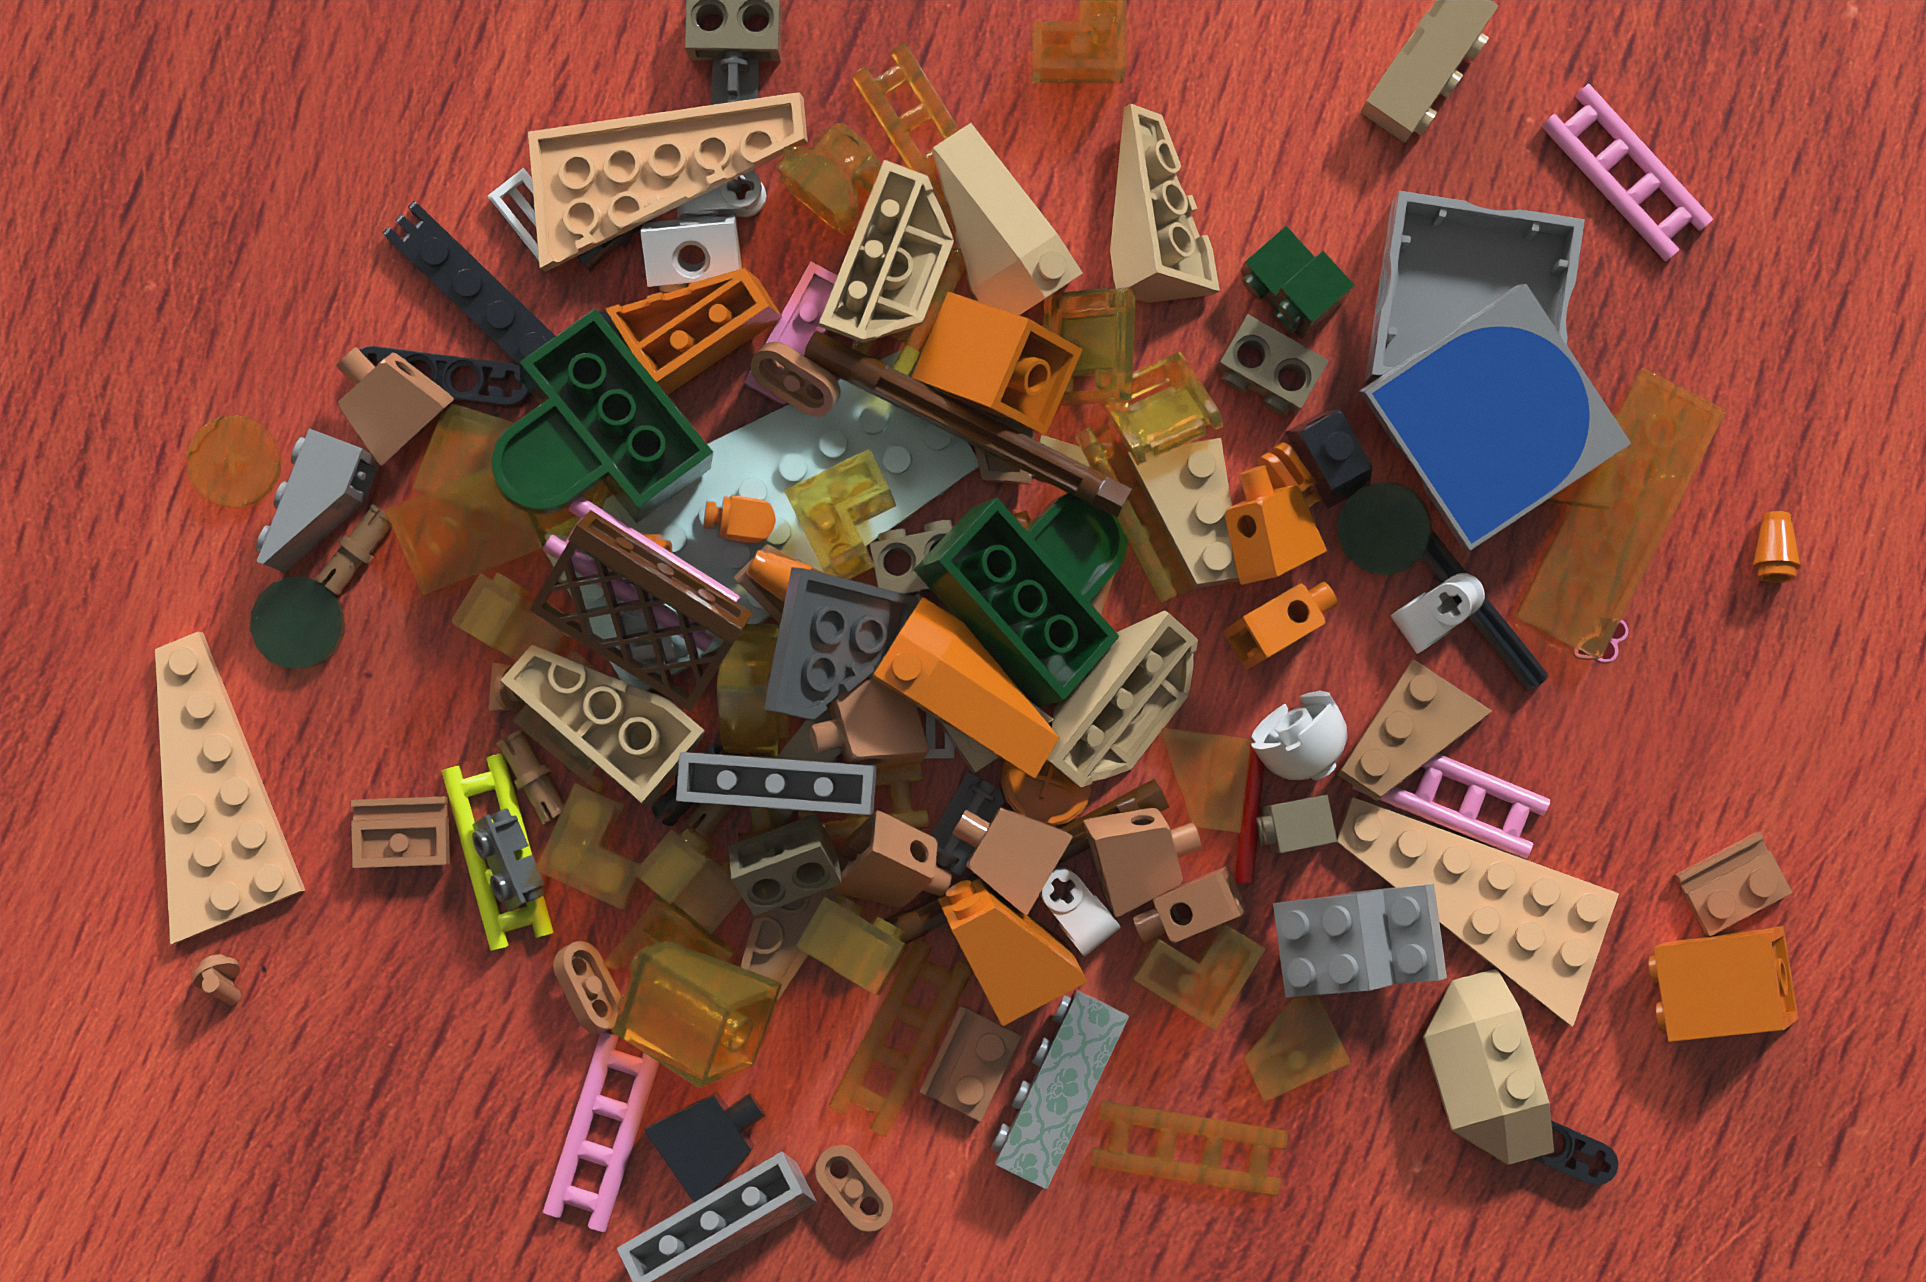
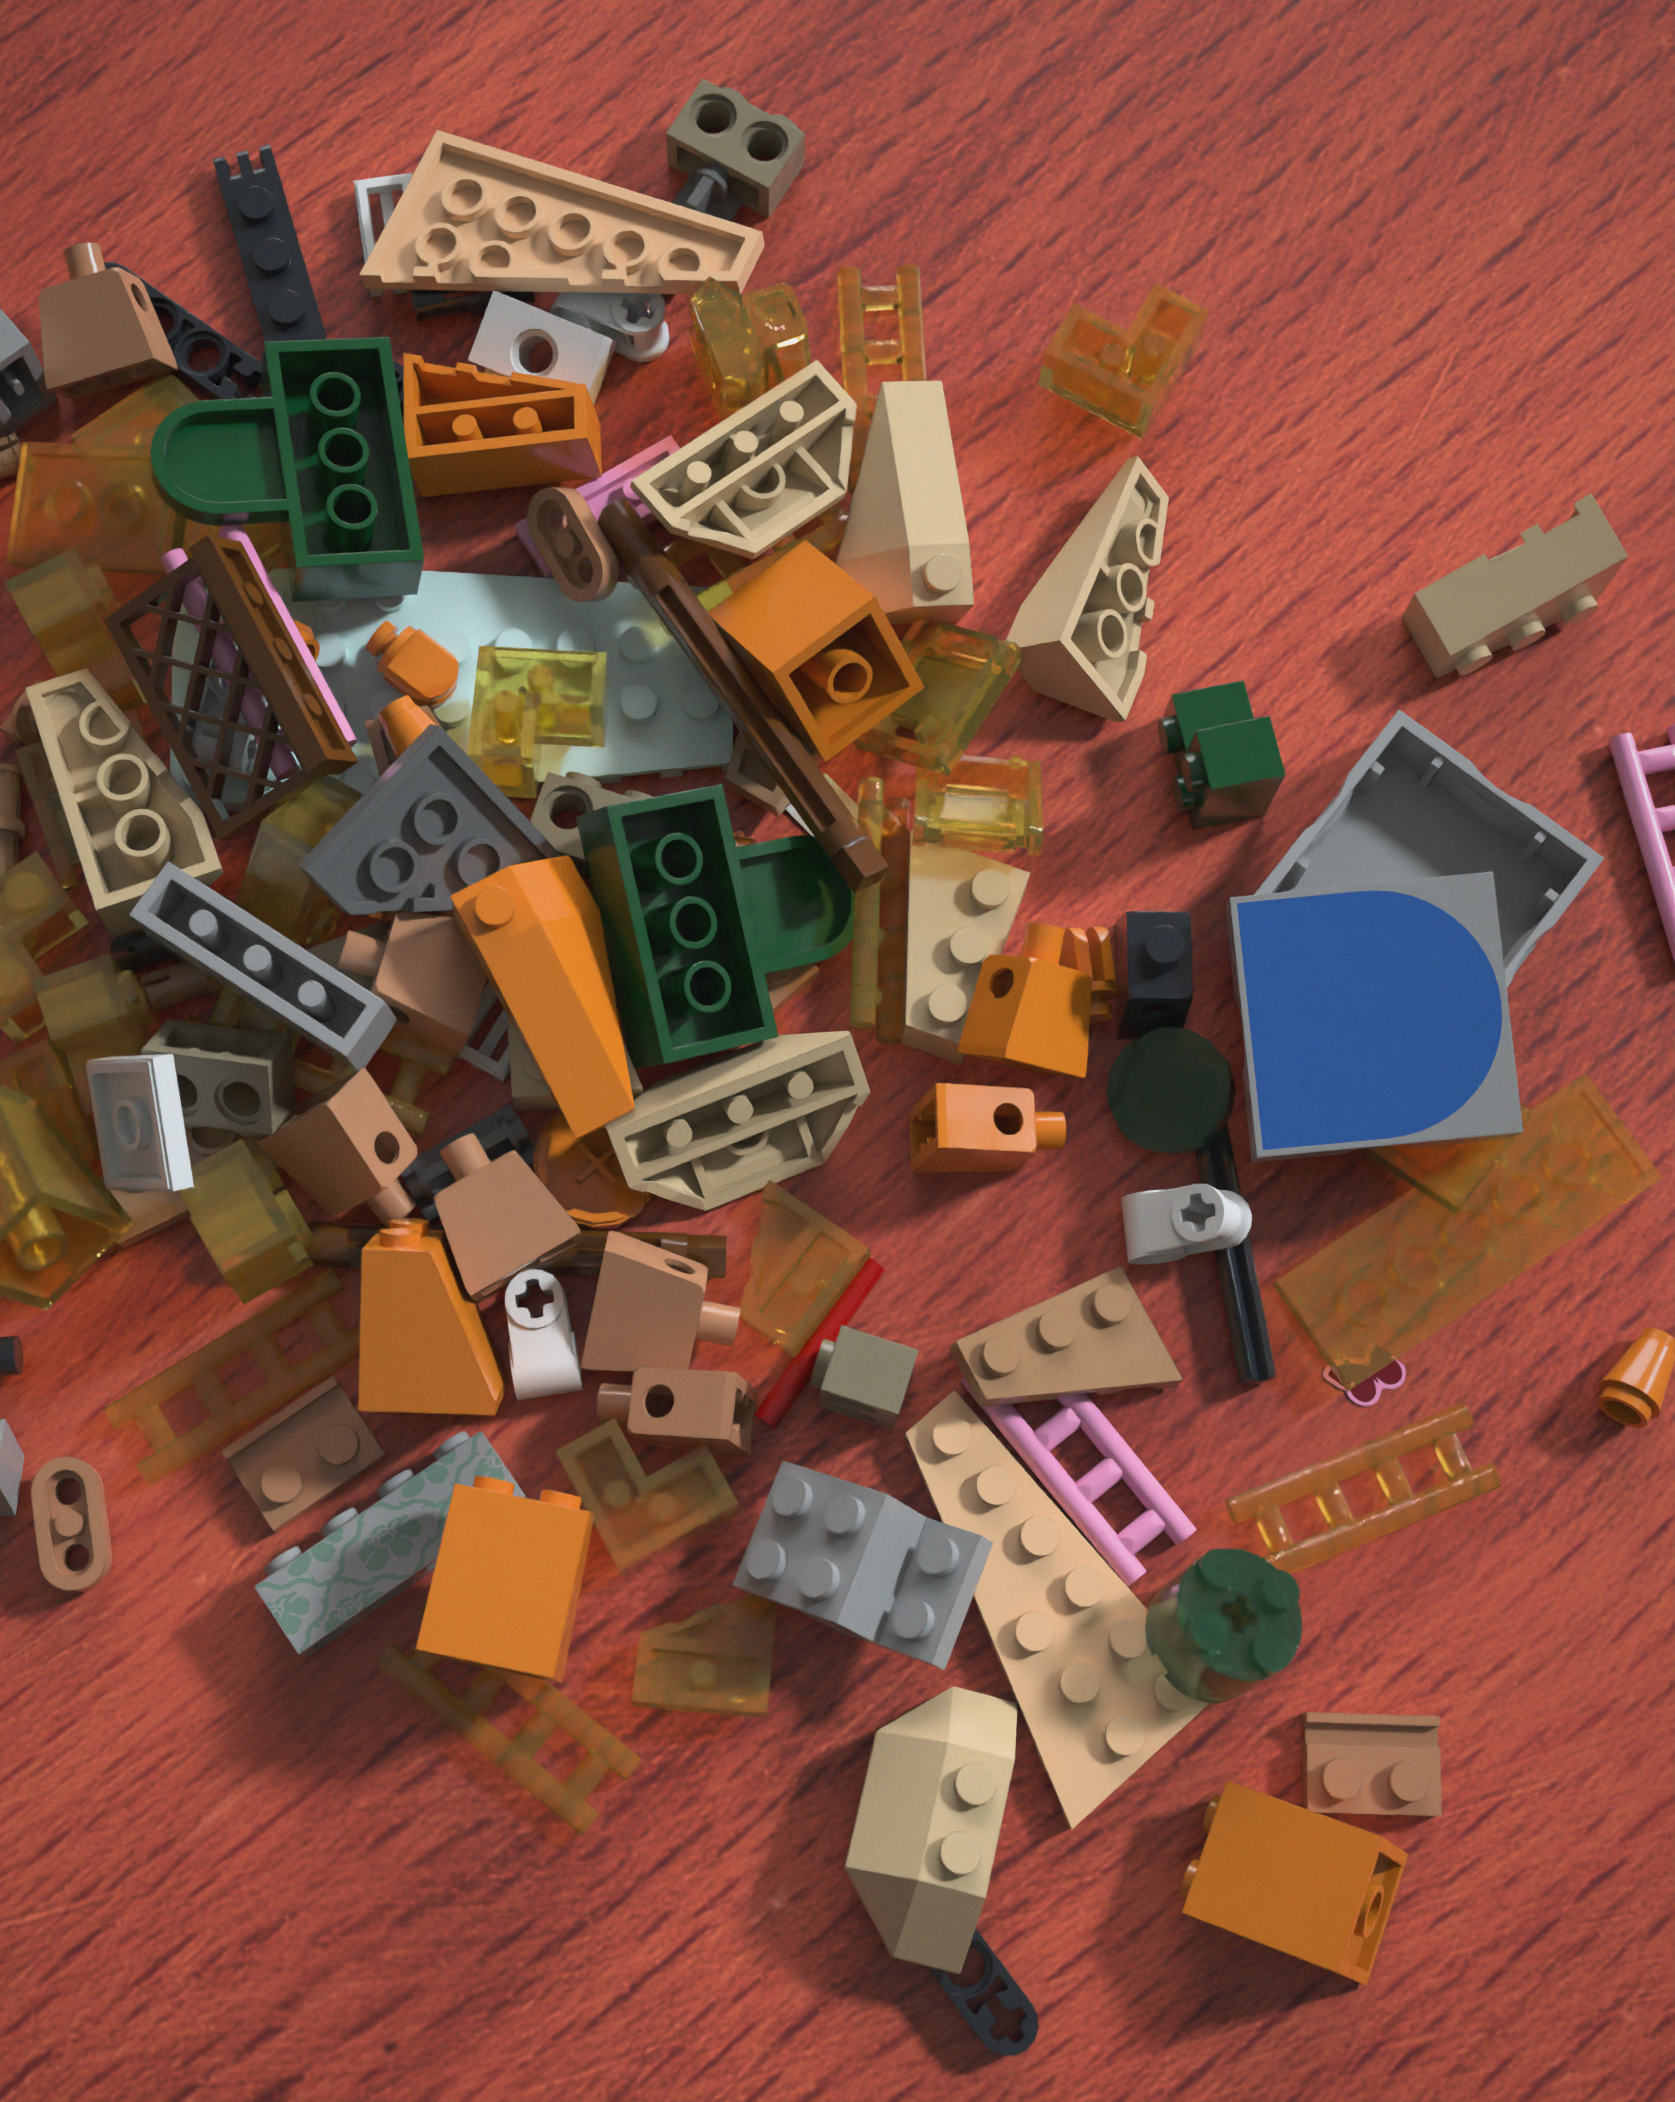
camera: 20 degrees right, 10 degrees down
(755, 923) = (139, 1123): none -> white tile
(1155, 1077) = (507, 1580): none -> orange slope
(1277, 355) = (1154, 828): dark tan brick -> none
(1304, 740) = (931, 1284): white cylinder -> none
(1602, 853) = (1225, 1625): none -> clear green brick
(1639, 688) = (1382, 1456): none -> clear yellow bar

